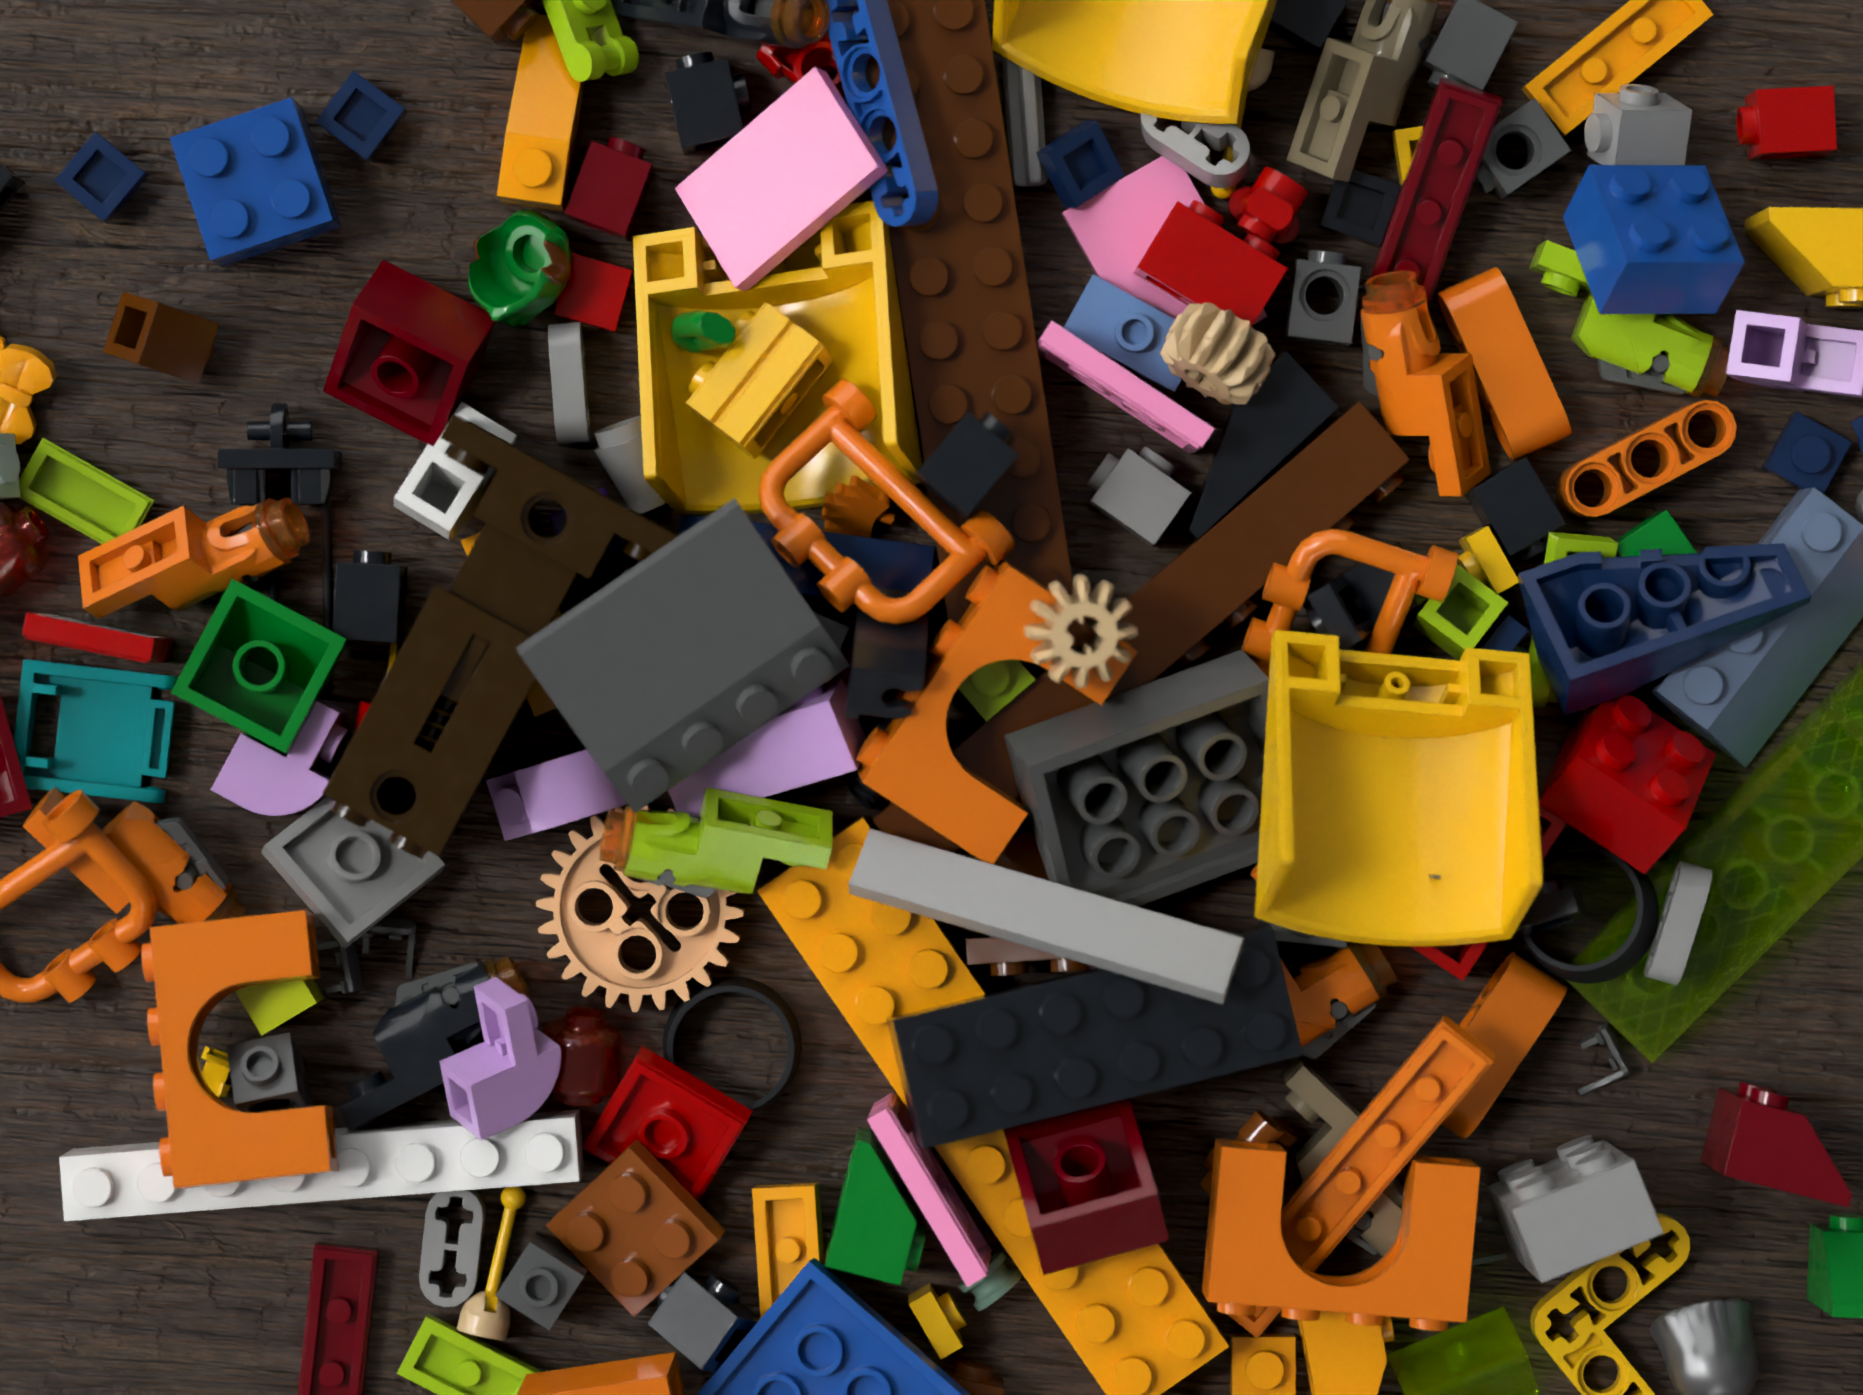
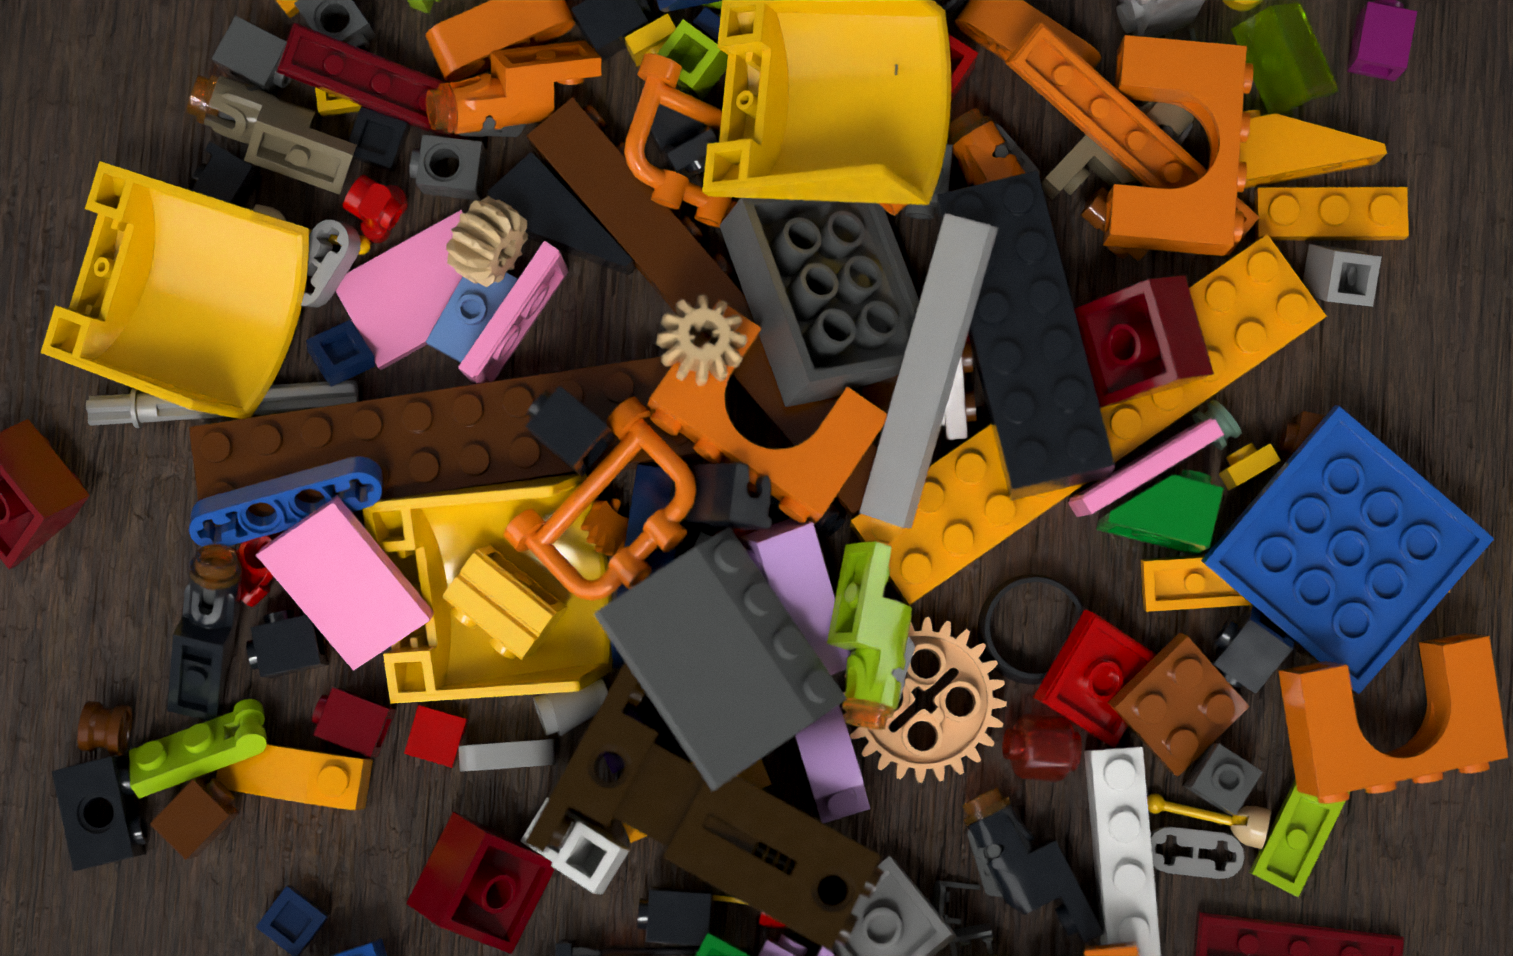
camera: 80 degrees left, 5 degrees down
(508, 1072) = (1056, 805): lavender brick -> none
(520, 267) = (413, 793): green hair -> none
(701, 331) = (465, 647): green piece -> none
(995, 686) = (749, 416): lime brick -> none
(1138, 493) = (598, 308): light grey brick -> none
(1207, 264) = (416, 254): red brick -> none

